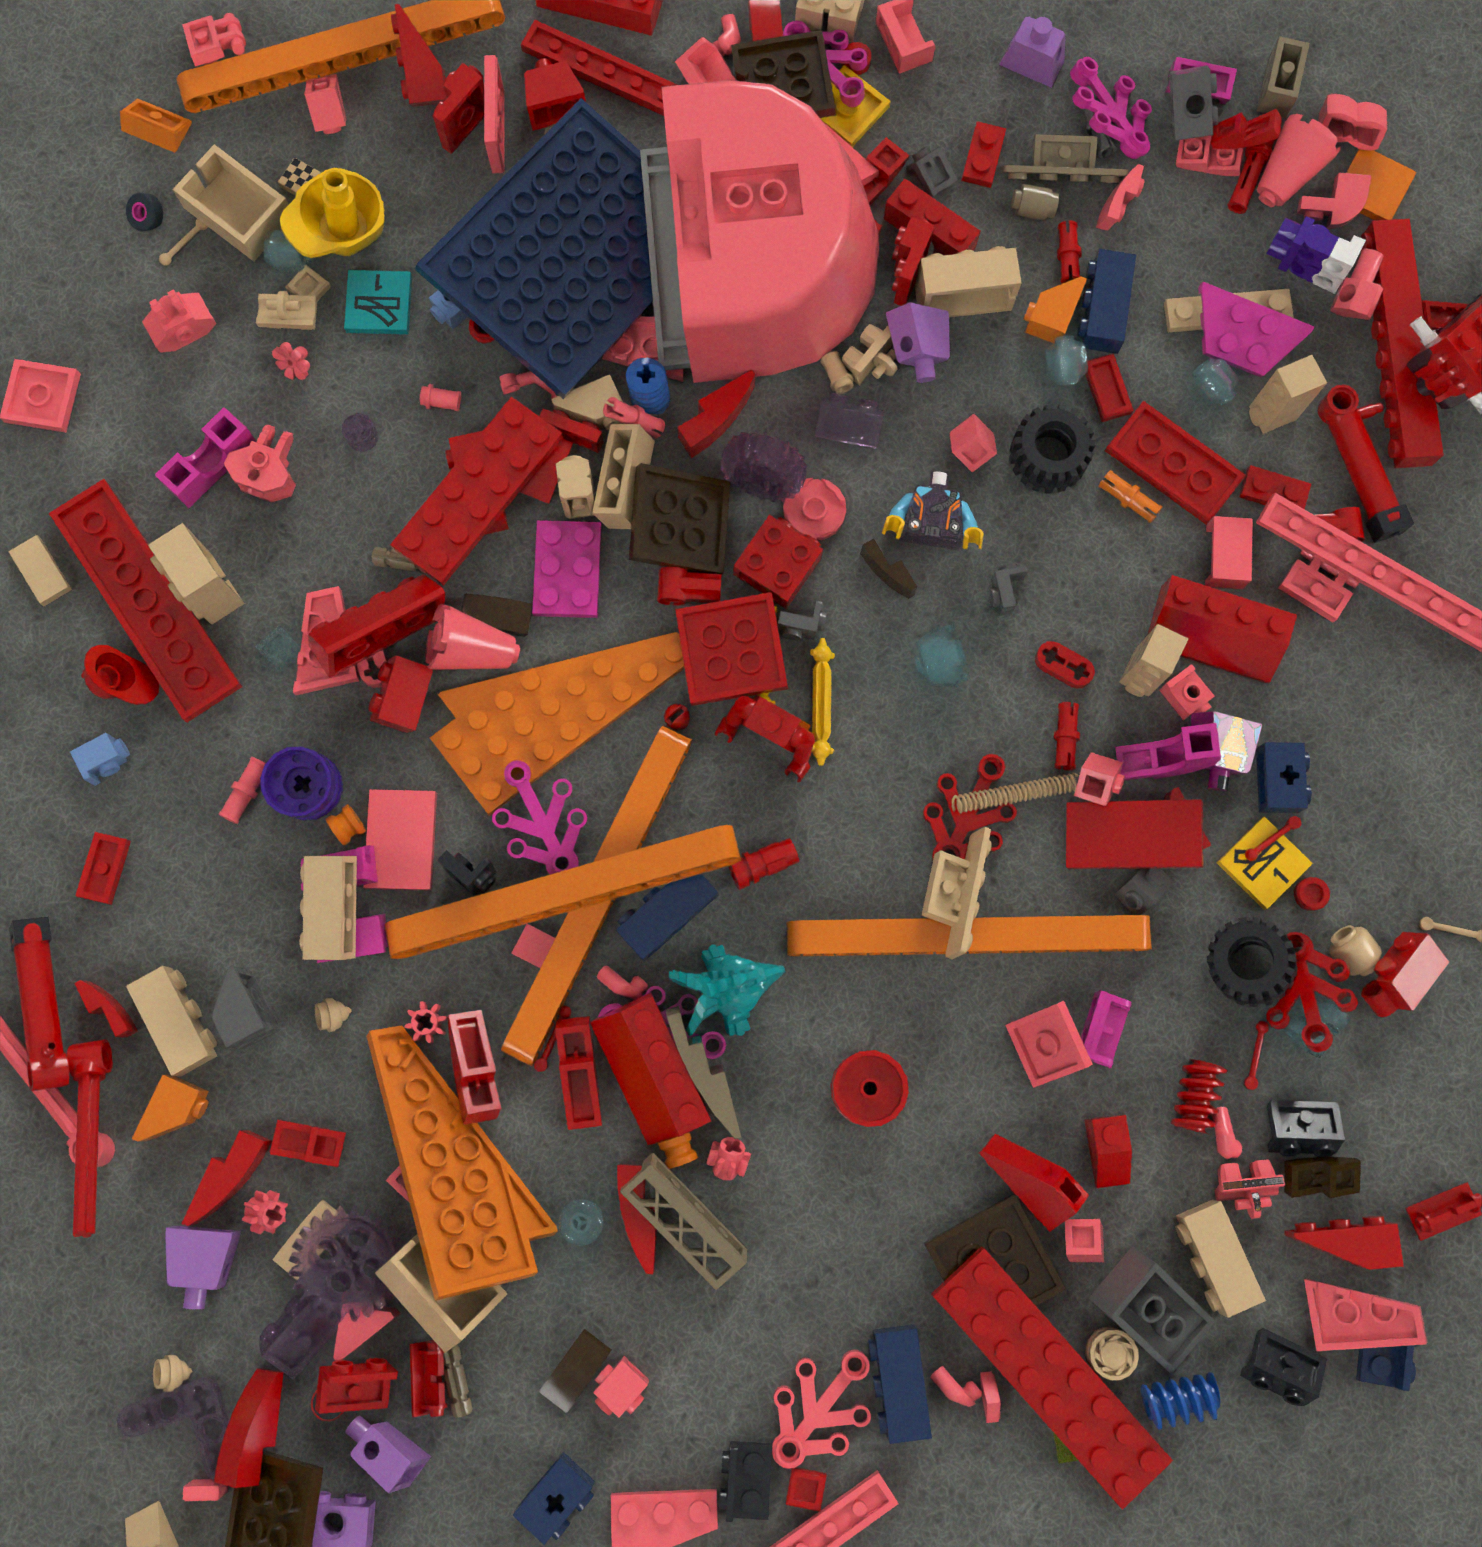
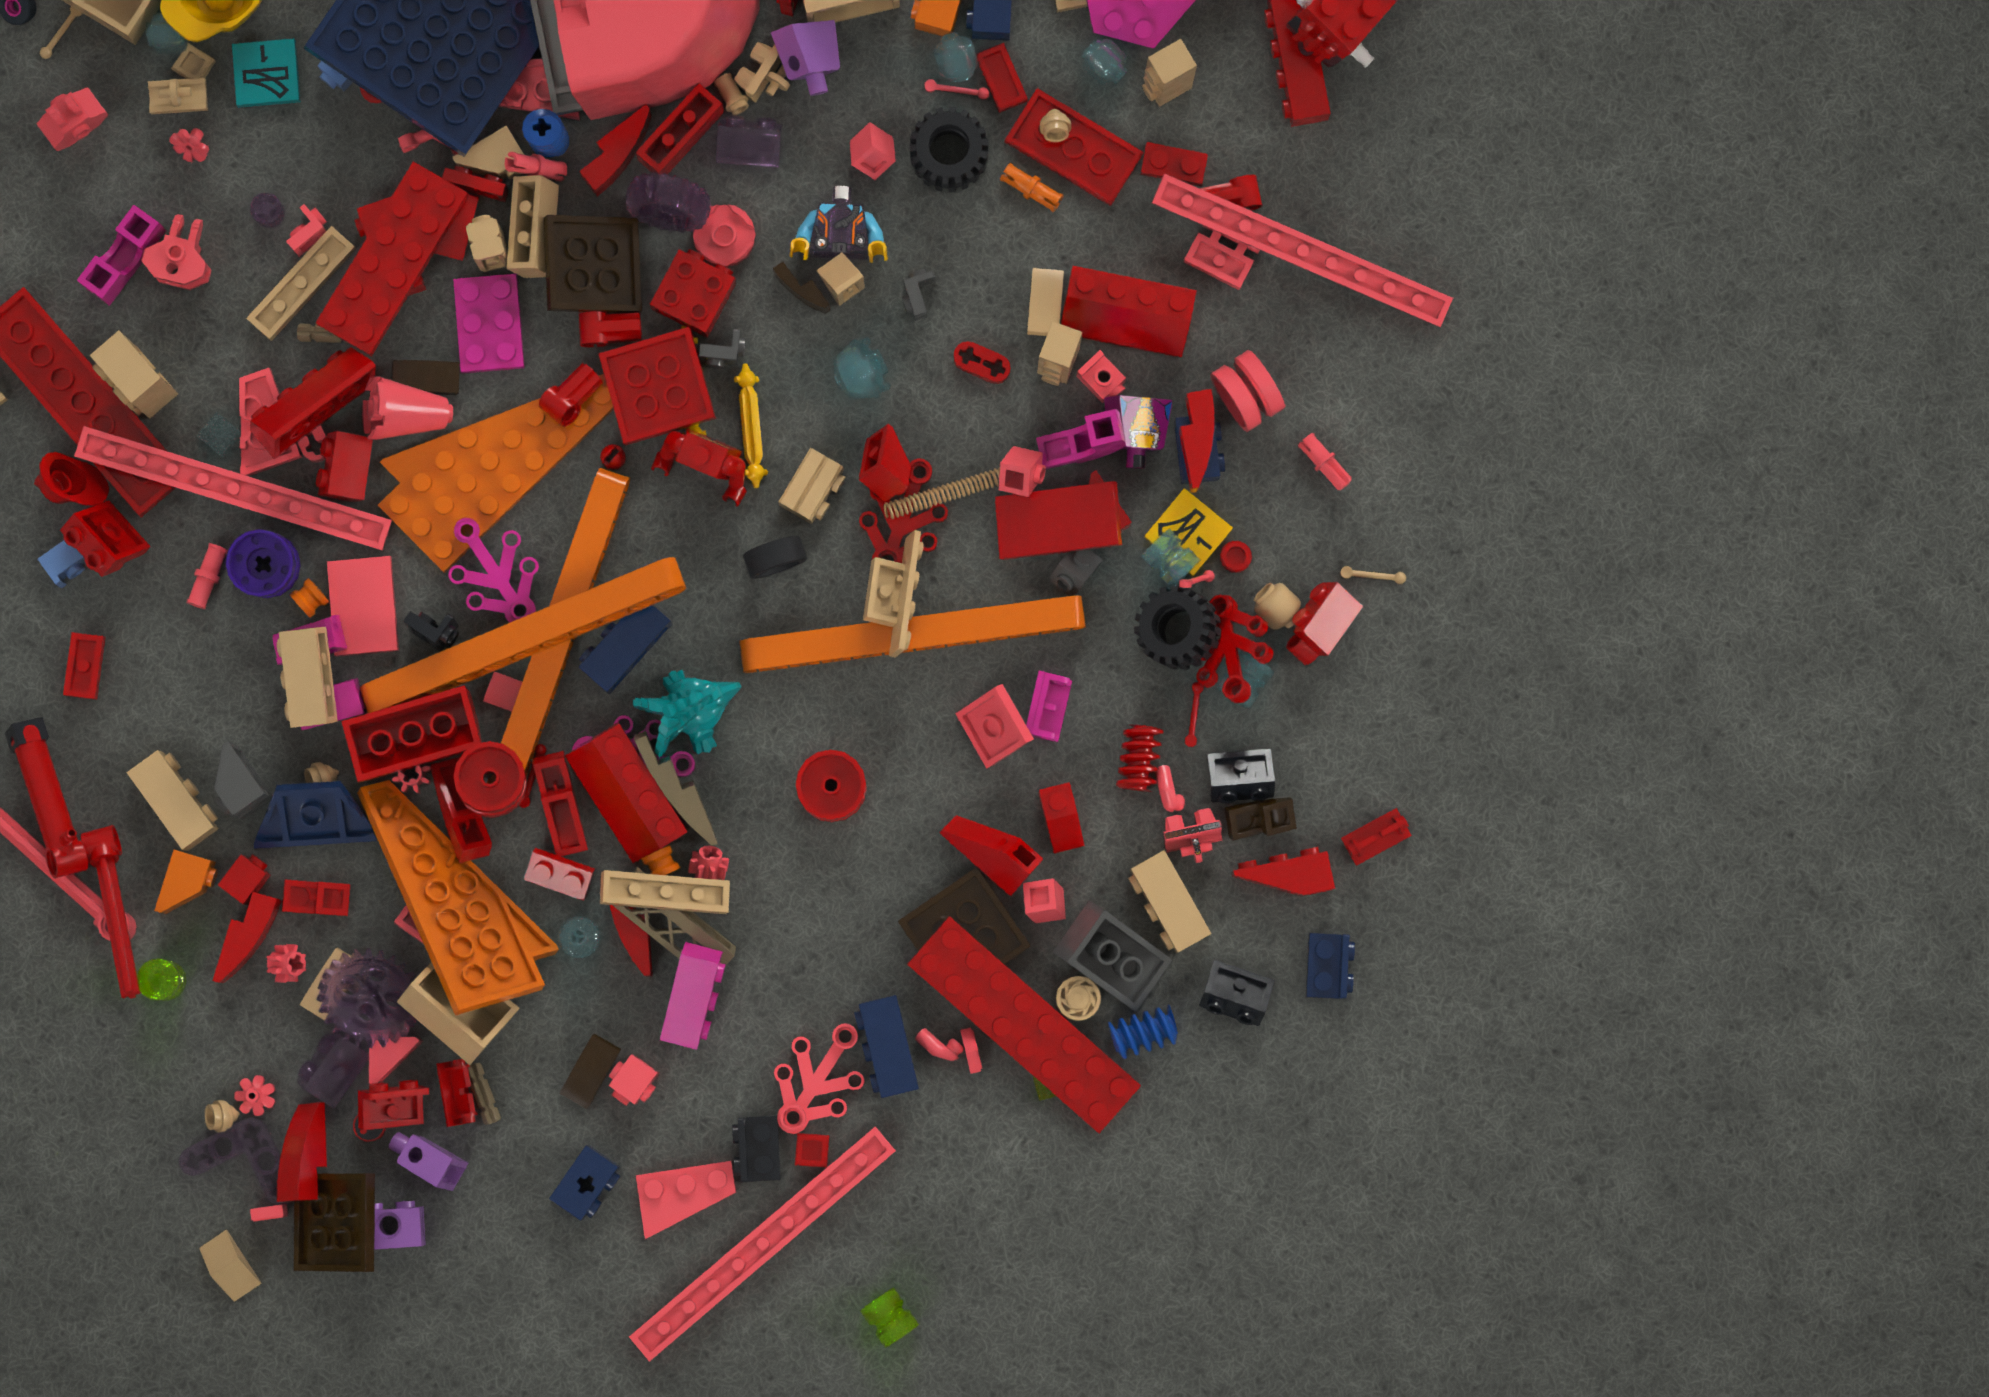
camera: 10 degrees left, 5 degrees up
(100, 1001) = (103, 791): red slope -> none
(128, 1215) = (161, 979): none -> clear neon green wheel
(141, 738) = (103, 538): none -> red plate
(199, 1260) = (232, 1013): medium lavender torso -> none
(211, 1353) = (261, 1095): none -> coral plant
(234, 1113) = (245, 877): none -> red brick
(282, 702) = (233, 488): none -> coral plate
(316, 1056) = (313, 816): none -> dark blue wing
(383, 507) = (301, 283): none -> tan plate
(398, 460) = (305, 236): none -> coral bracket
(432, 980) = (412, 733): none -> red slope
(440, 398) = (340, 165): coral pin -> none
(500, 1020) = (480, 763): none -> red wheel
(568, 1148) = (559, 874): none -> plate
(620, 986) = (589, 719): coral arm -> none
(635, 653) = (565, 401): none -> red piece
(679, 1187) = (664, 892): none -> tan piece
(696, 1303) = (692, 996): none -> dark pink brick
(763, 863) = (711, 587): red axle -> none
(784, 398) = (680, 131): none -> red brick
(834, 838) = (775, 557): none -> black tyre
(879, 769) = (812, 486): none -> tan brick
(932, 563) = (841, 278): none -> tan slope
(958, 756) = (885, 464): none -> red slope
(1037, 388) = (932, 86): none -> coral hinge
(1066, 736) = (989, 432): red pin -> none
(1135, 611) = (1044, 300): none -> tan slope
(1162, 437) = (1055, 126): none -> tan plate
(1230, 552) = (1131, 233): coral panel -> none
(1250, 888) = (1170, 558): none -> clear light blue wheel
(1281, 911) = (1207, 576): none -> coral hinge
(1291, 764) = (1198, 436): none -> red slope
(1292, 824) = (1211, 492): red hinge -> none
(1343, 723) = (1247, 390): none -> coral wheel
(1361, 1320) = (1299, 941): coral wing -> none
(1363, 464) = (1280, 175): red piece -> none
(1413, 806) = (1325, 461): none -> coral axle

